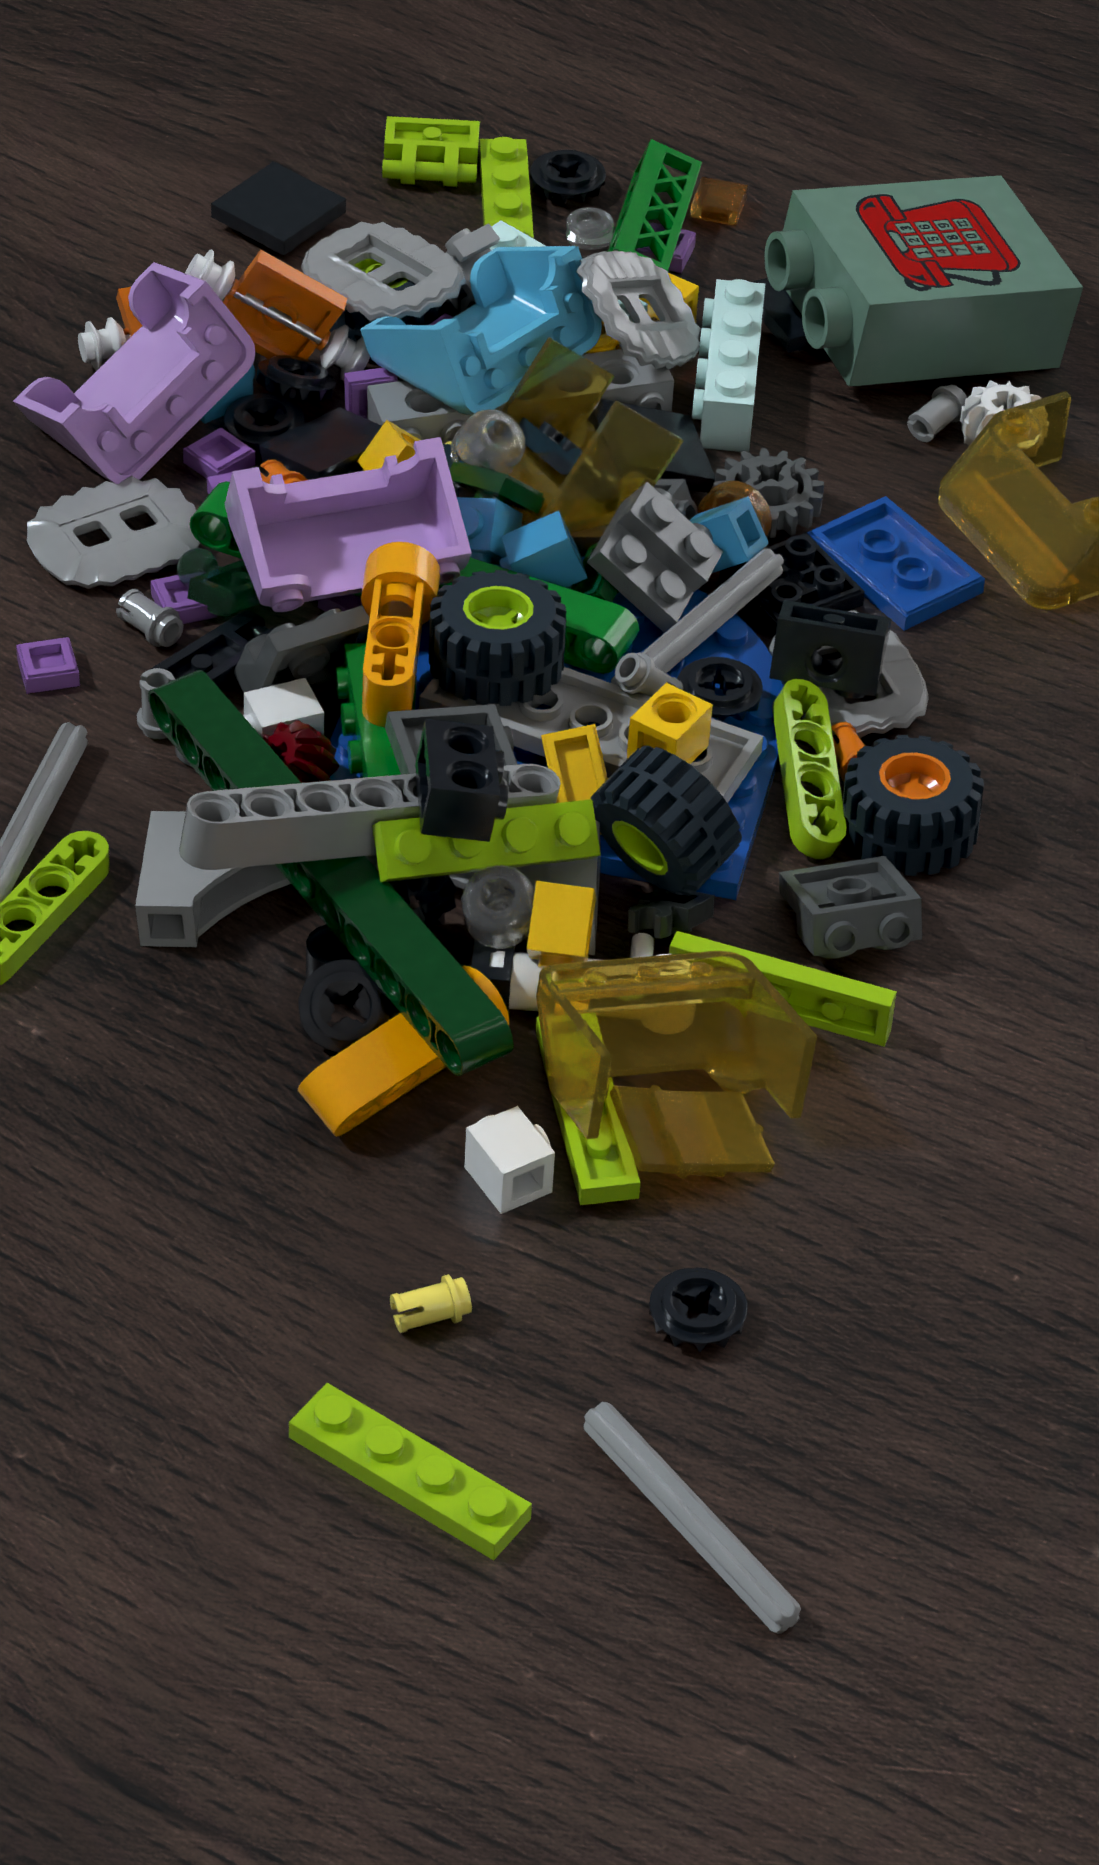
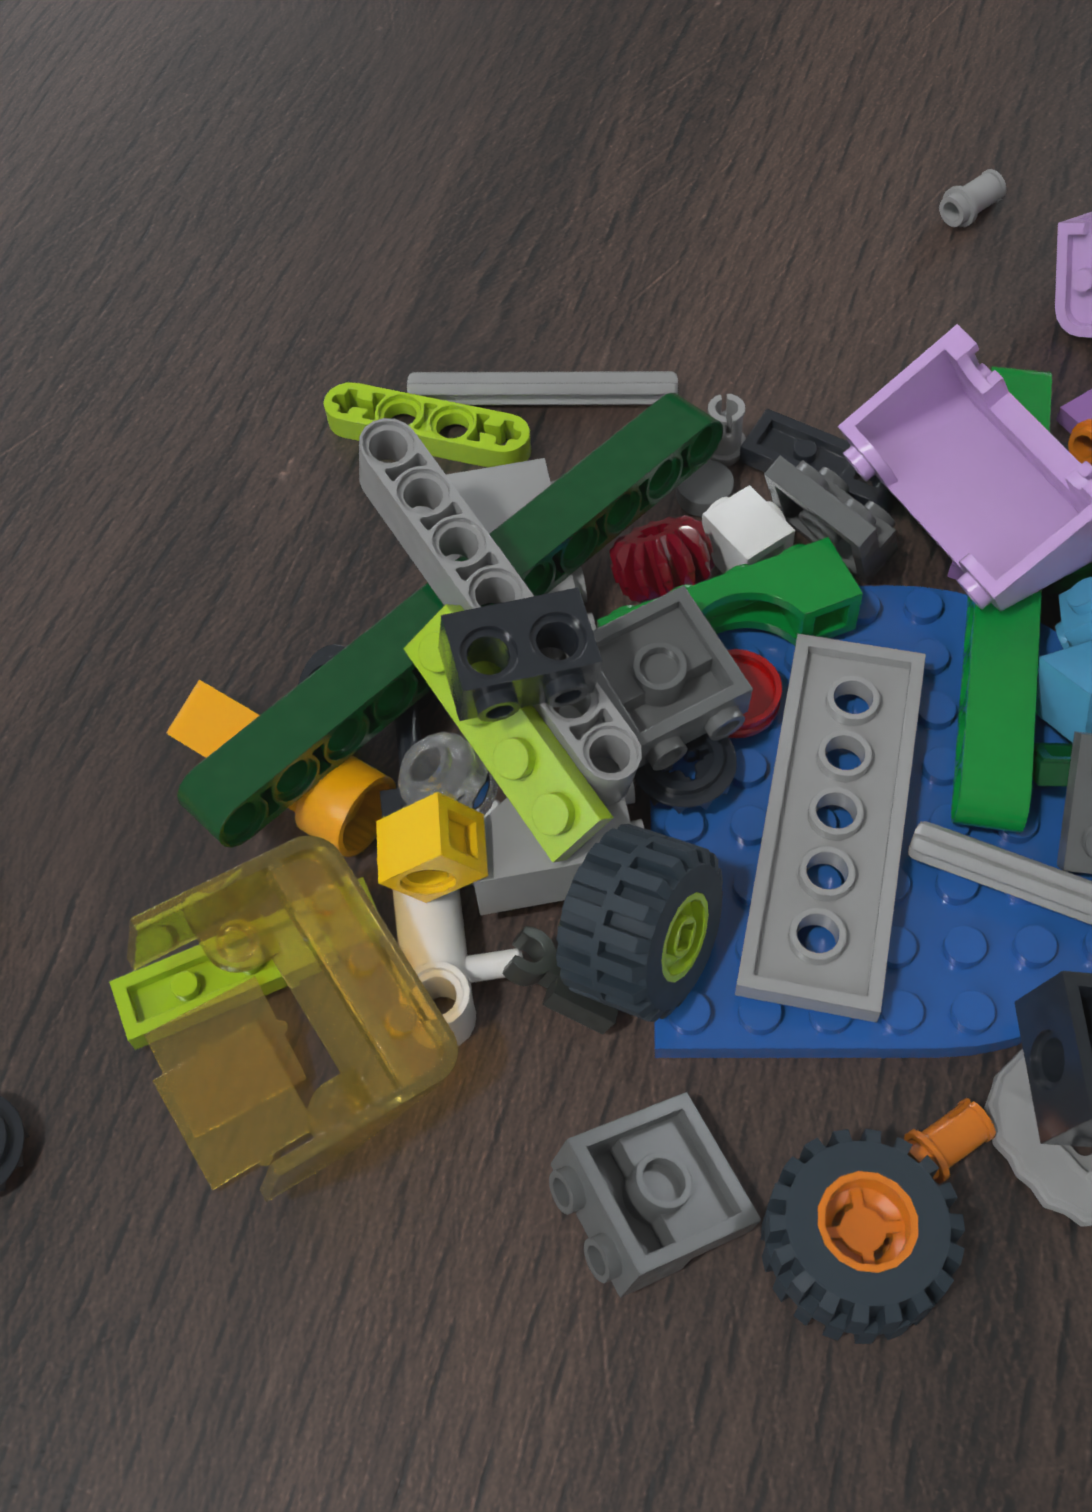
camera: 85 degrees right, 15 degrees up
(47, 665) = (767, 344): medium lavender tile -> none
(128, 552) = (1003, 314): light grey piece -> none
(158, 624) = (870, 380): light grey pin -> none
(397, 598) = (842, 565): light orange beam -> none
(497, 637) = (890, 670): black wheel -> none
(509, 1159) = (142, 884): white brick -> none
(577, 762) = (731, 814): yellow tile -> none
(639, 675) = (919, 850): light grey pin -> none
(673, 723) = (804, 865): yellow brick -> none
(737, 680) = (979, 922): black gear -> none
(816, 995) = (481, 1166): lime plate -> none
(821, 770) = (883, 1082): lime beam -> none

